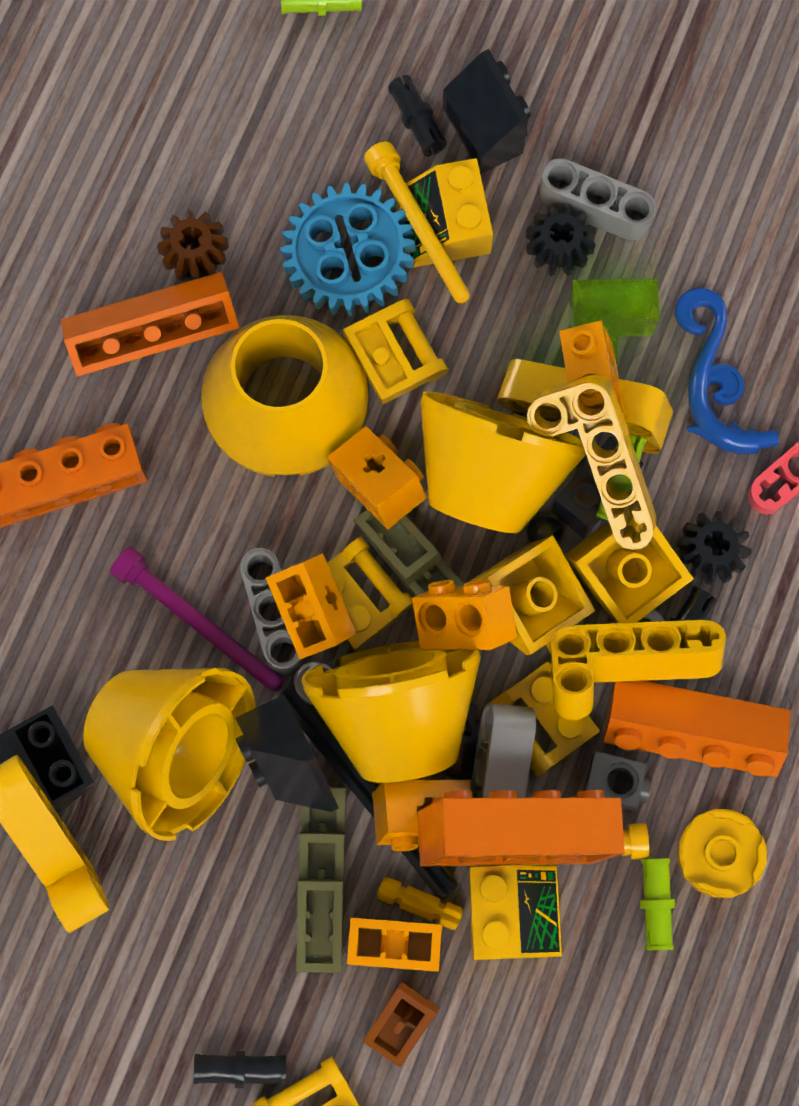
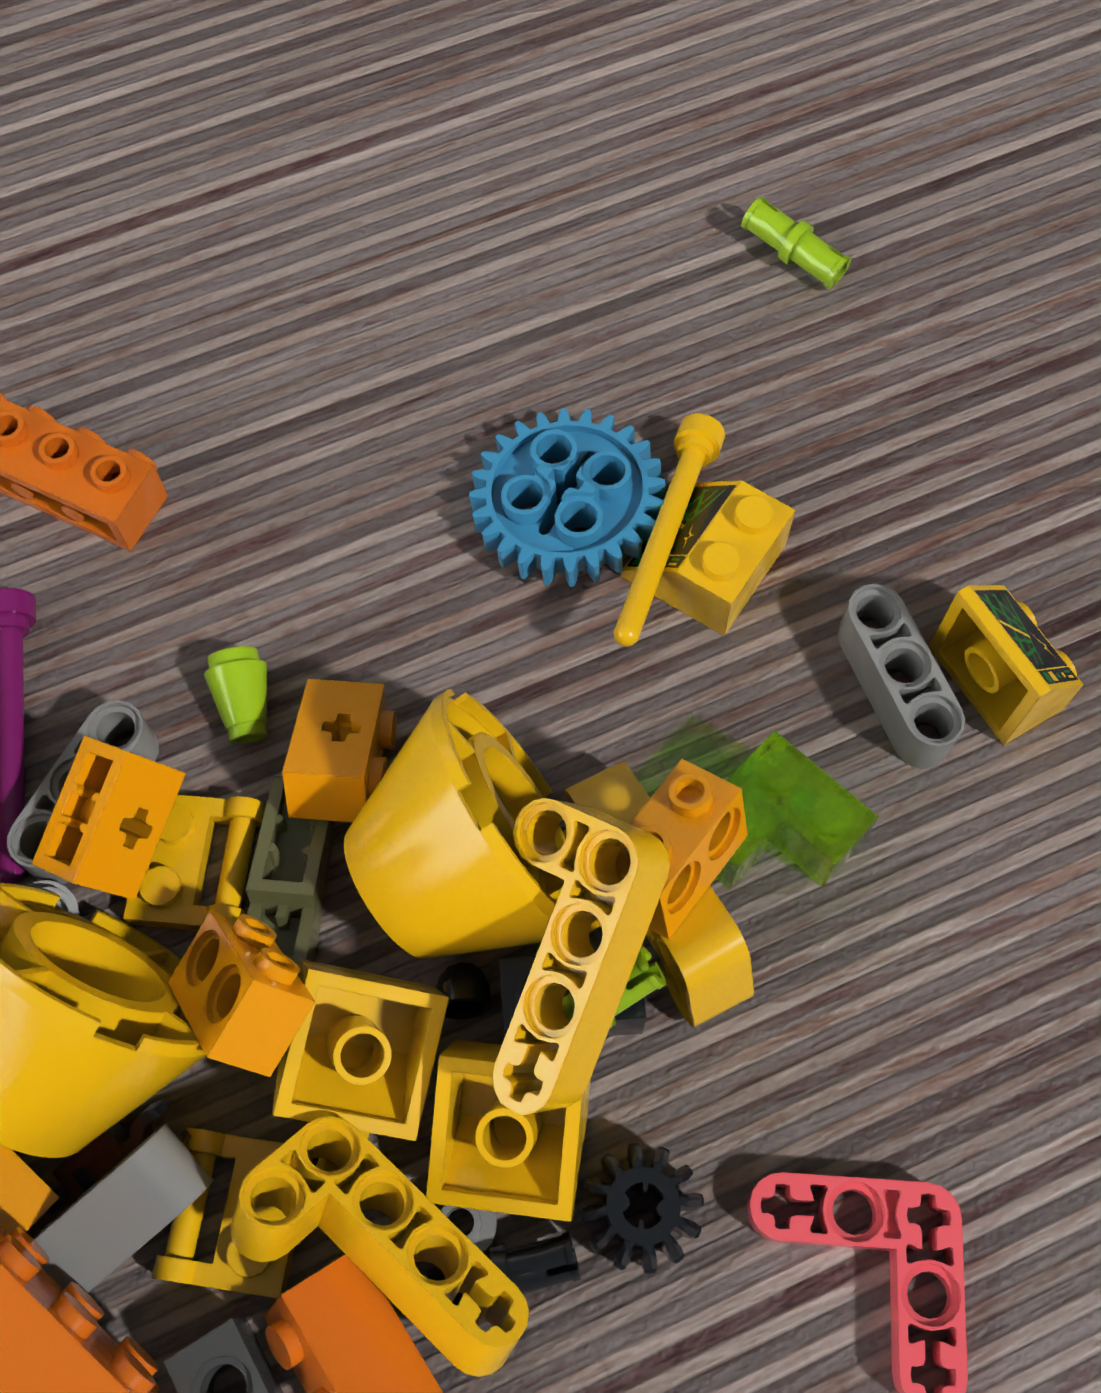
camera: 45 degrees right, 10 degrees down
(149, 324) = (286, 394): orange brick -> none
(190, 231) = (415, 361): reddish brown gear -> none
(292, 436) = (362, 626): yellow cone -> none
(292, 496) = (240, 692): none -> lime cone
(383, 357) = (489, 634): yellow plate -> none
(417, 115) = (782, 428): black pin -> none
(487, 112) = (860, 479): black slope -> none
(562, 253) = (832, 675): black gear -> none
(640, 149) = (1003, 661): none -> yellow slope
(703, 374) = (840, 986): blue plant -> none

